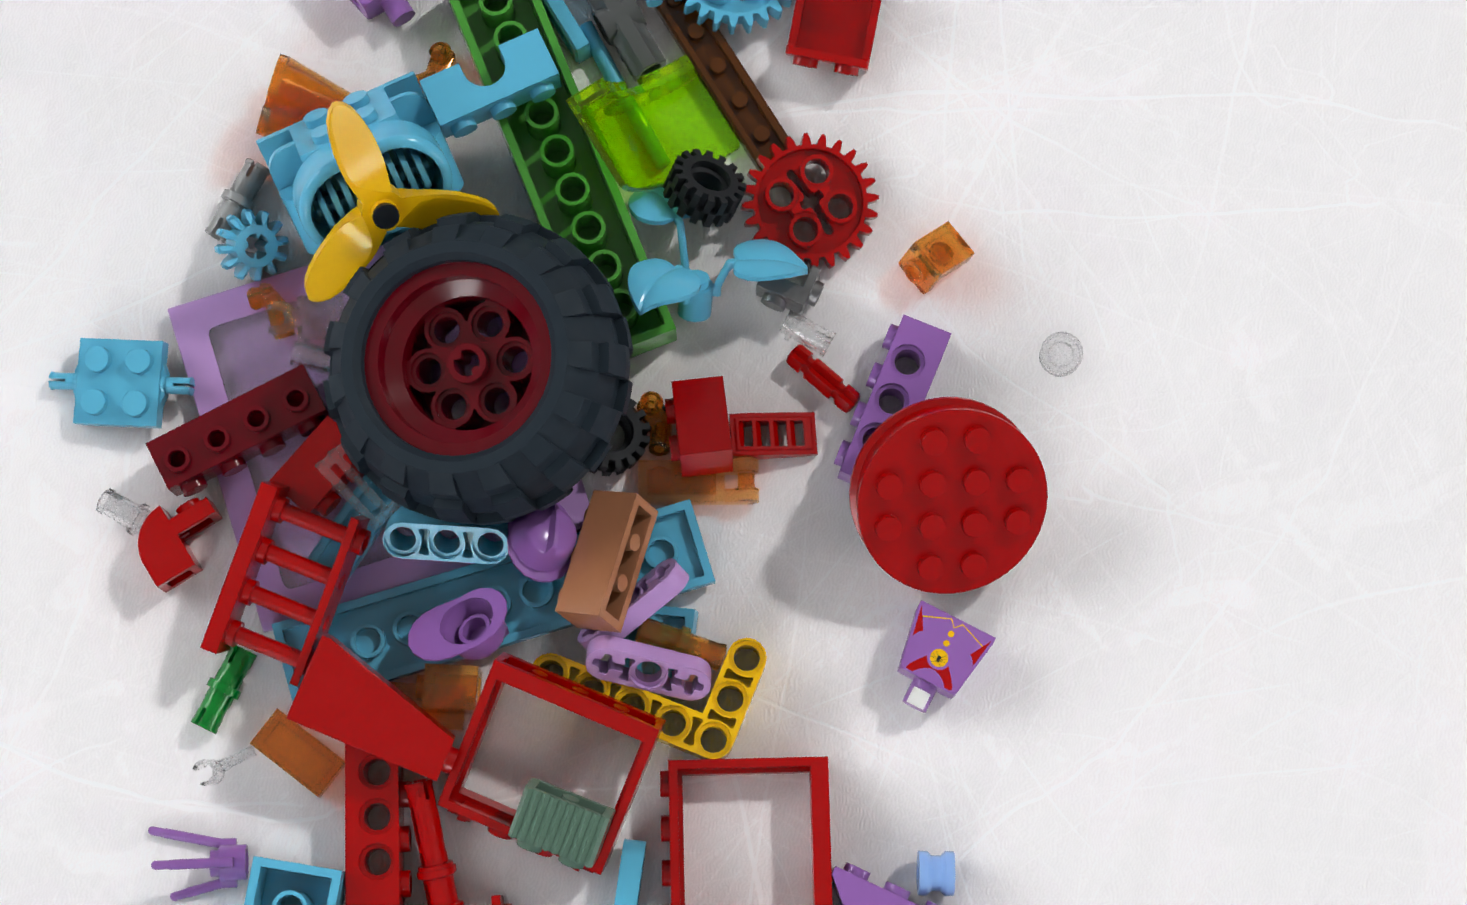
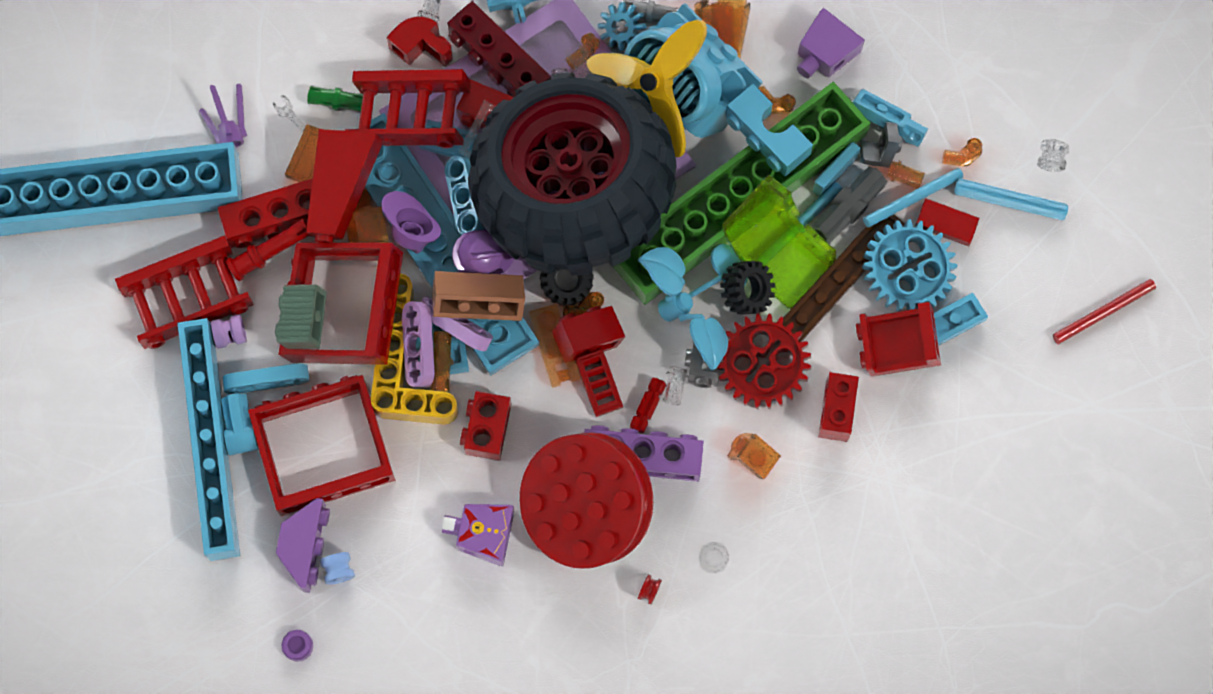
camera: 75 degrees right, 5 degrees down
(795, 596) = (492, 426): none -> red brick
(904, 123) = (838, 407): none -> red brick
(1084, 451) = (649, 589): none -> red bush

